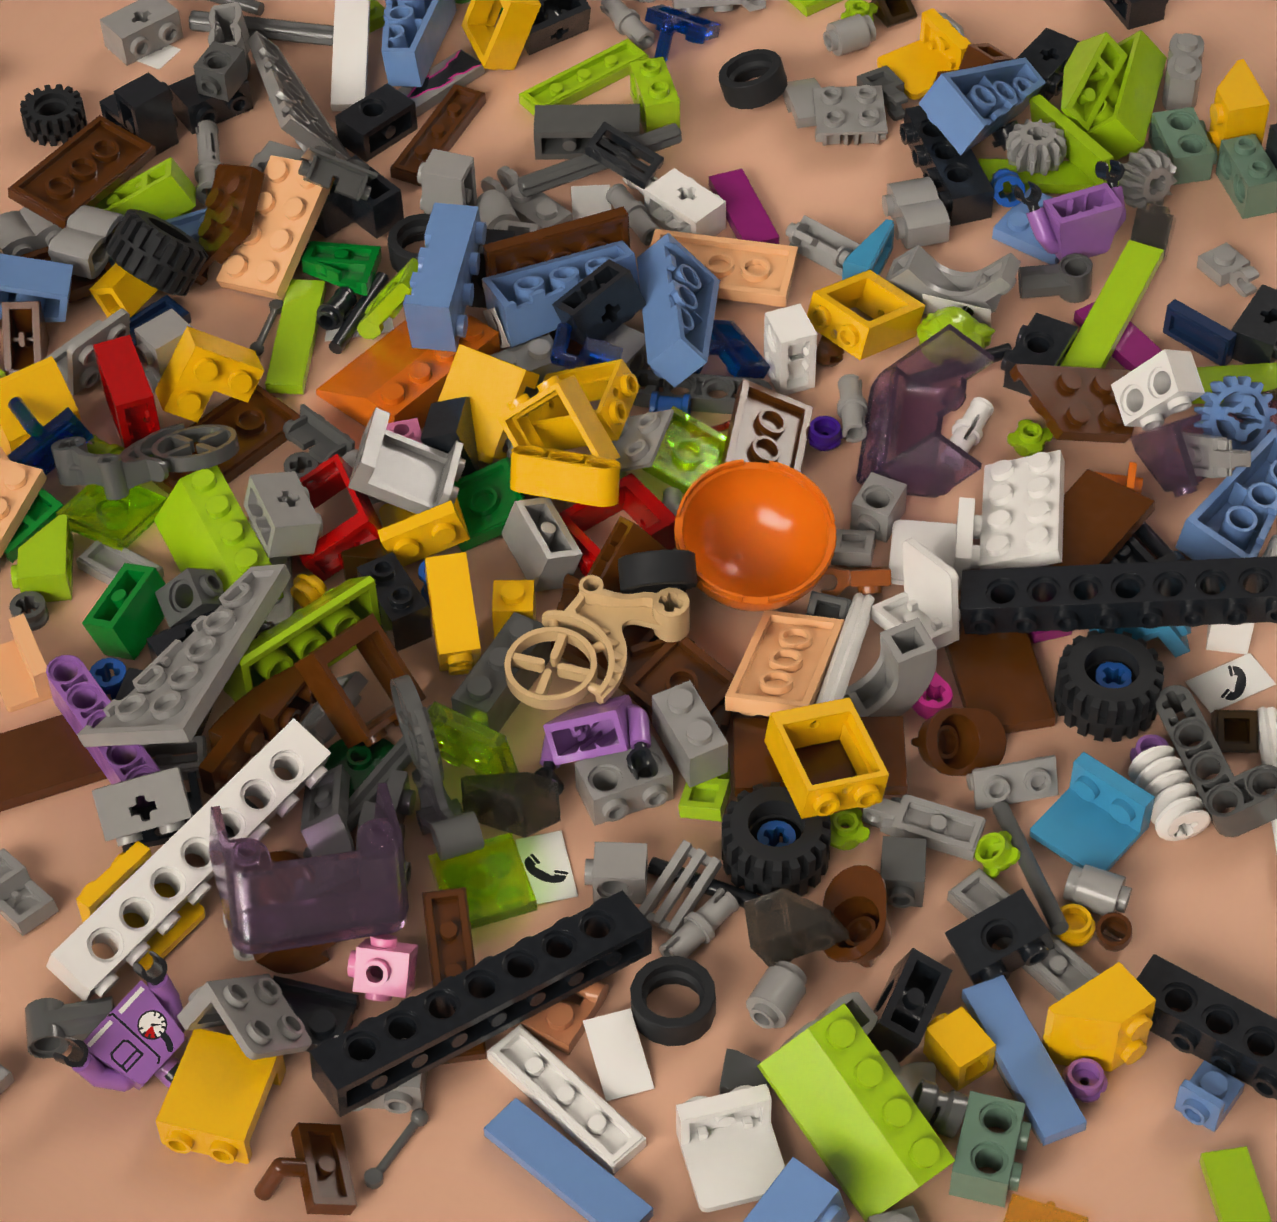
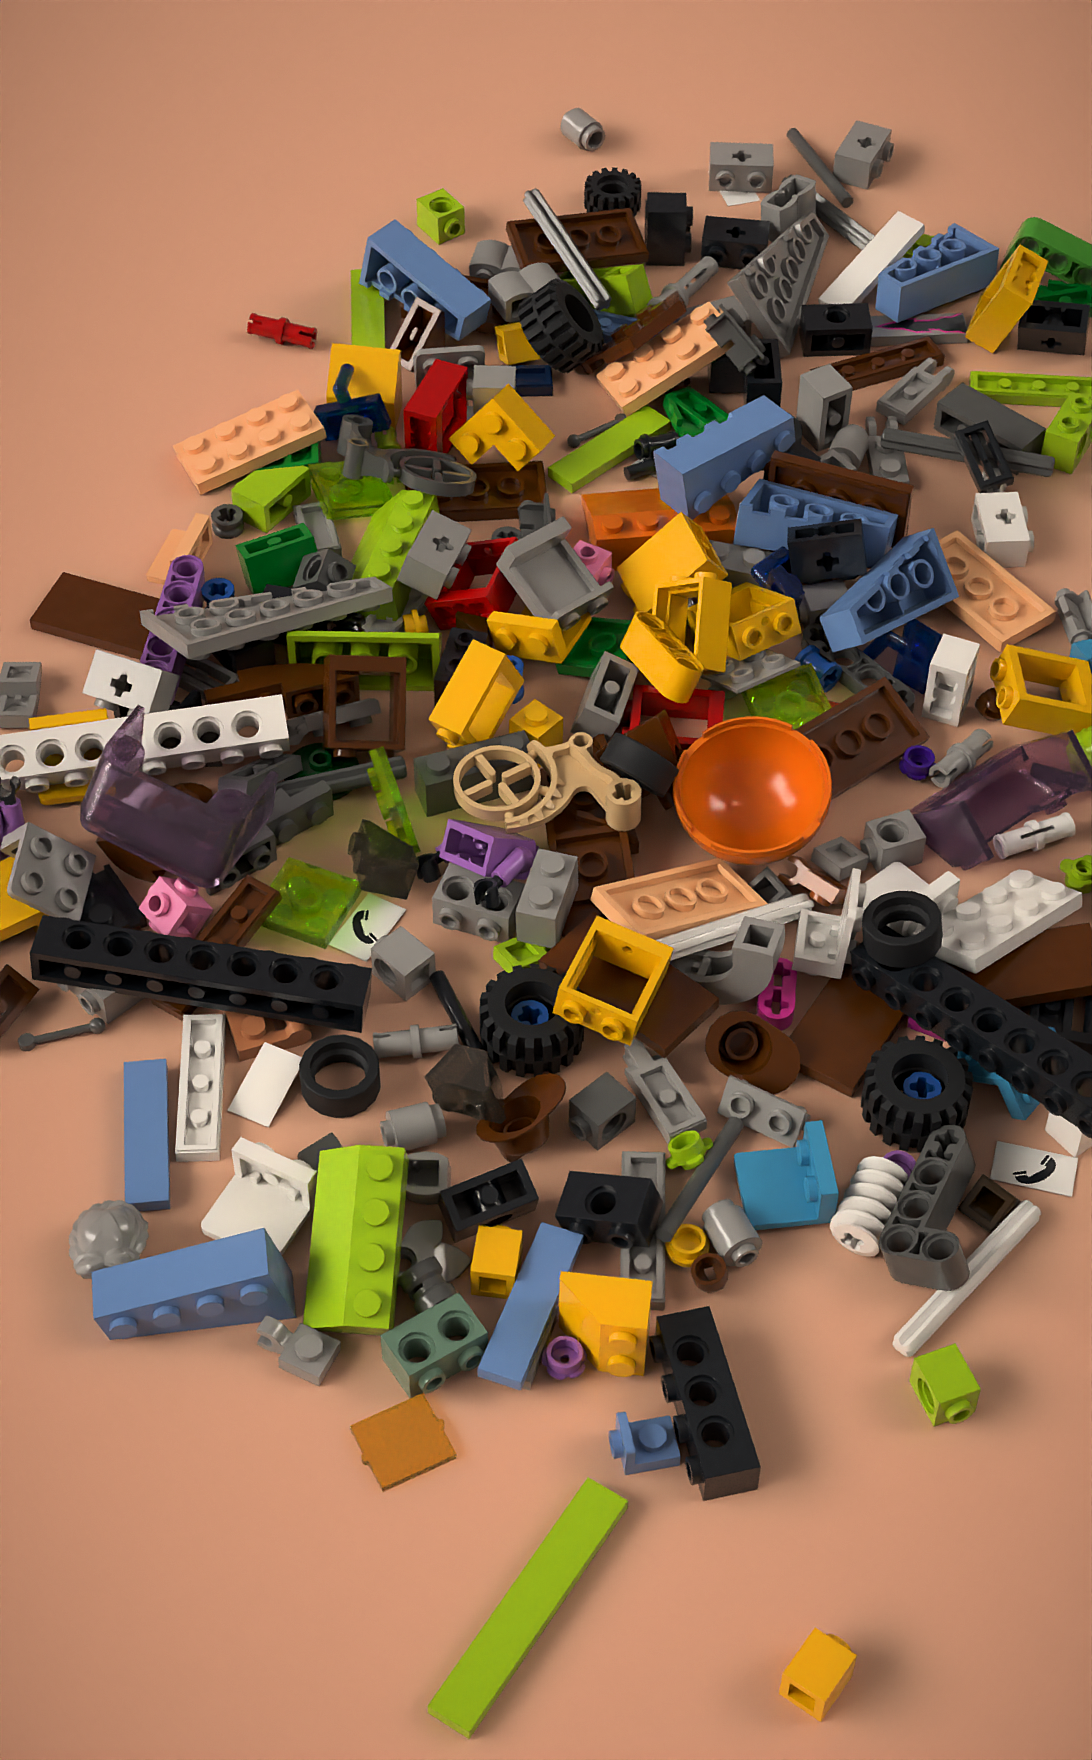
camera: 40 degrees right, 0 degrees up
(88, 181) = (567, 249): none -> axle
(220, 71) = (746, 223): dark grey brick -> none
(451, 829) = (343, 773): dark grey piece -> none
(452, 422) = (628, 574): black slope -> none
(494, 138) = (914, 391): none -> light grey hinge
(589, 200) = (936, 489): white sticker -> none
(638, 213) = (957, 507): light grey pin -> none
(697, 857) = (430, 998): light grey tile -> none
(743, 207) = (1051, 559): magenta tile -> none
(849, 837) = (599, 1061): lime plate -> none
(988, 538) = (900, 951): none -> black tyre

